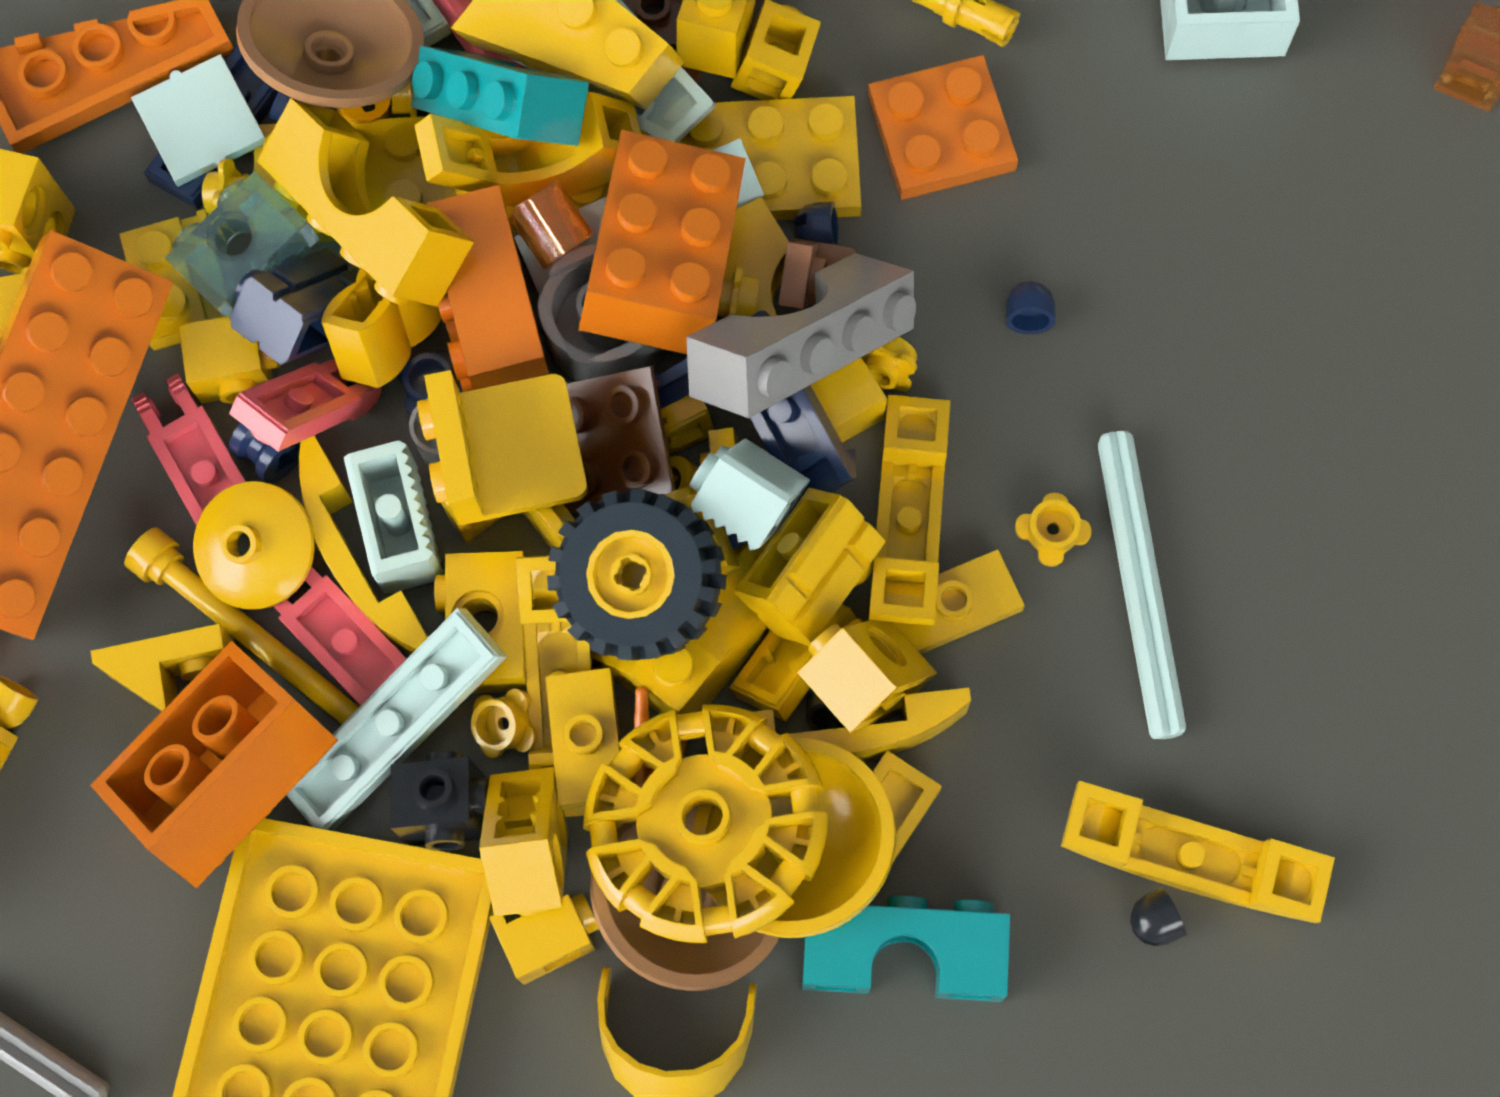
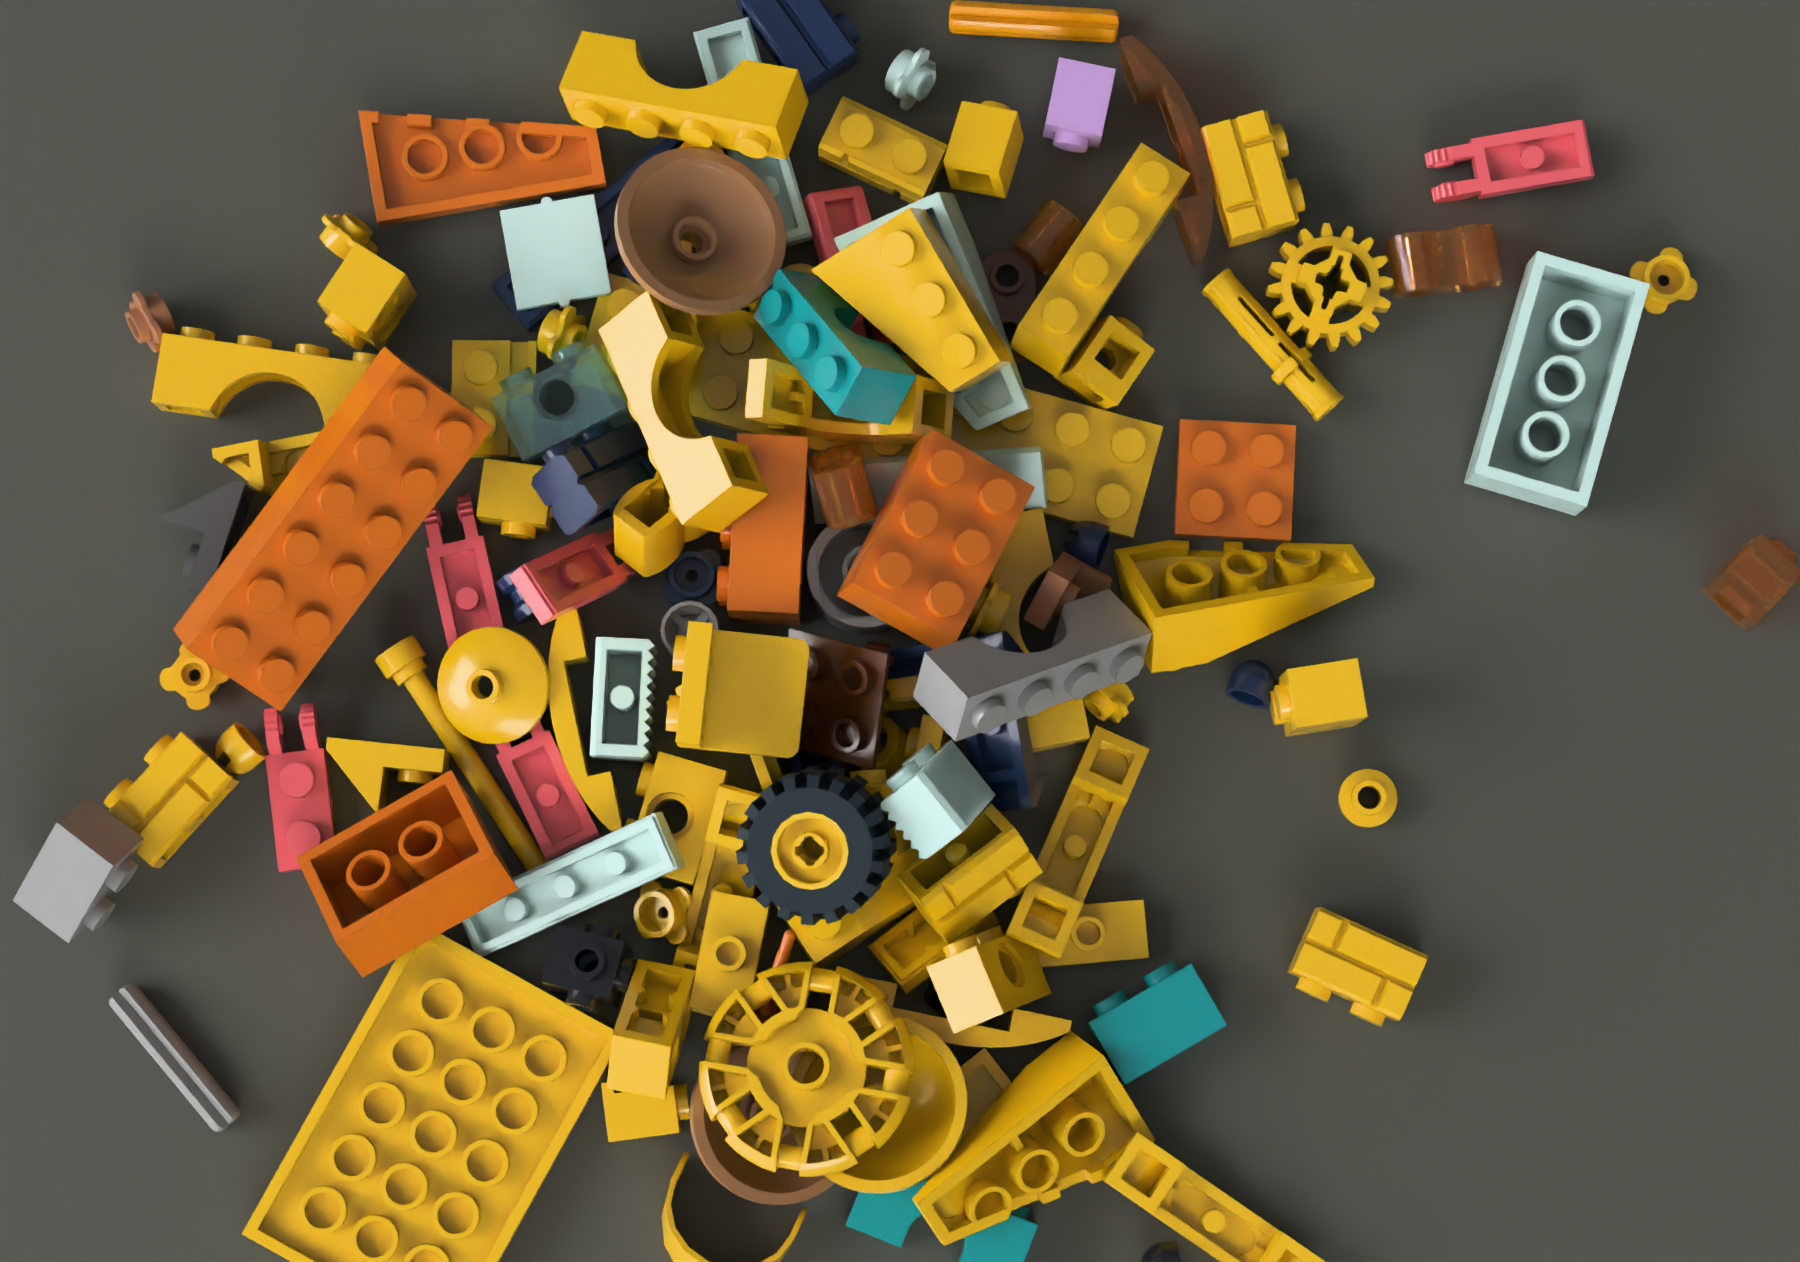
camera: 10 degrees right, 10 degrees up
(78, 719) = (298, 788): none -> coral hinge
(980, 232) = (1225, 599): none -> yellow wedge
(981, 818) = (1044, 1133): none -> yellow wedge
(1055, 666) = (1155, 1022): none -> teal brick
(1056, 511) = (1215, 901): yellow plate -> none
(1105, 286) = (1318, 698): none -> yellow brick
(1141, 586) = (1258, 970): light aqua axle -> none
(1180, 394) = (1352, 808): none -> yellow plate
(1241, 543) = (1357, 966): none -> yellow brick

